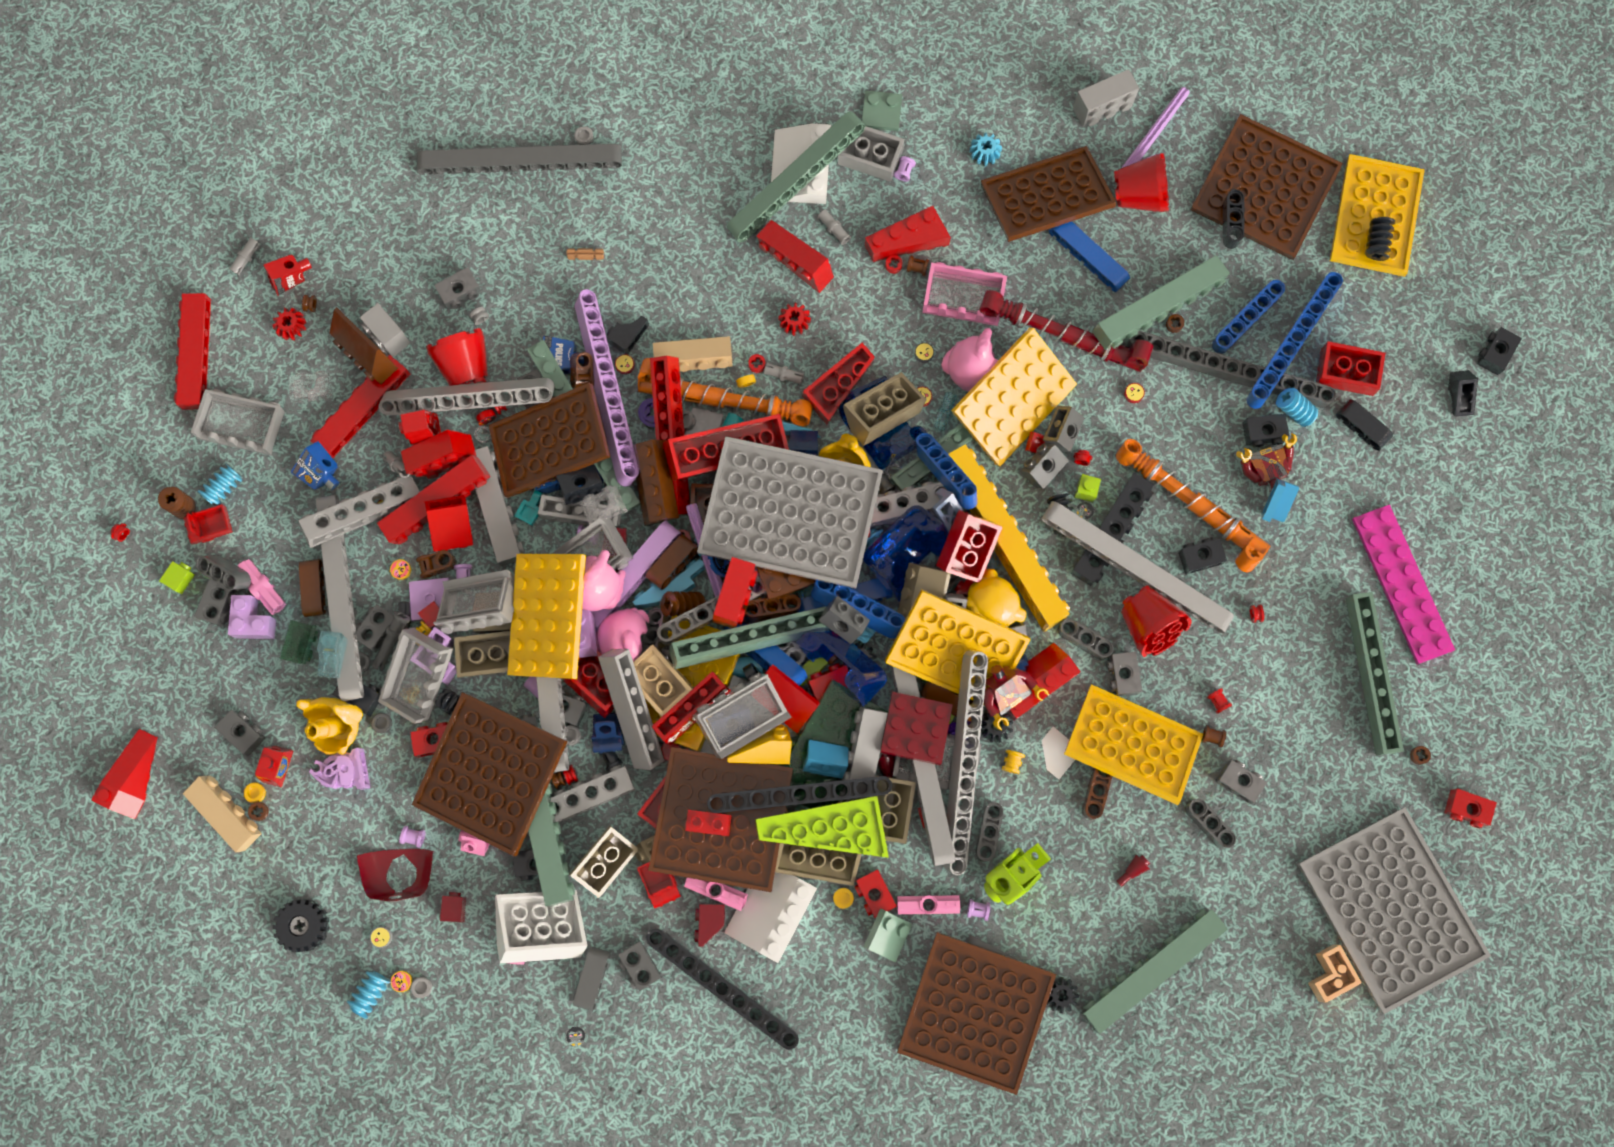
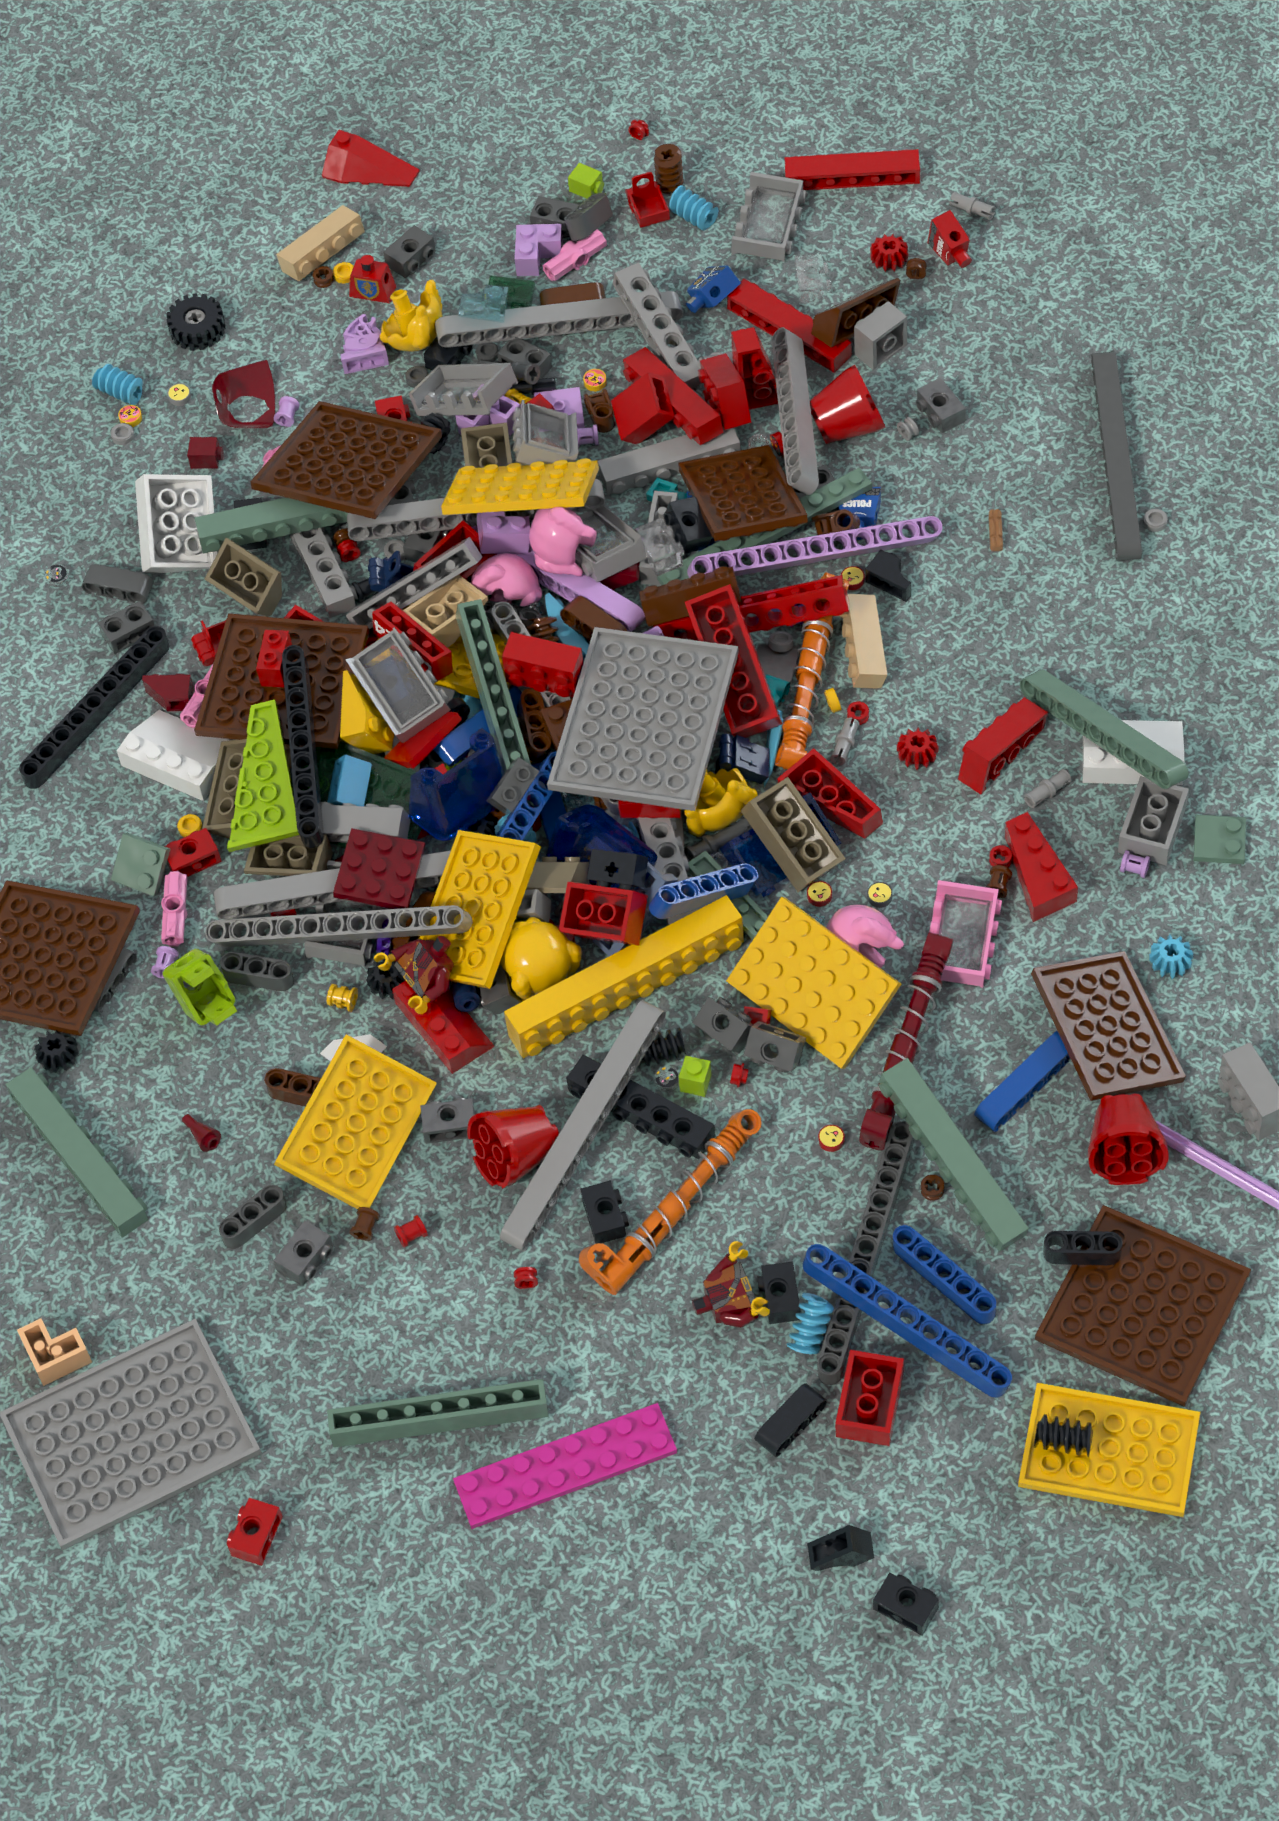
camera: 95 degrees right, 20 degrees down
(935, 535) = (605, 864): none -> black brick
(1095, 639) = (498, 1065): dark grey beam -> none
(1280, 501) = (678, 1301): dark azure panel -> none
(1426, 753) = (326, 1469): reddish brown bush -> none

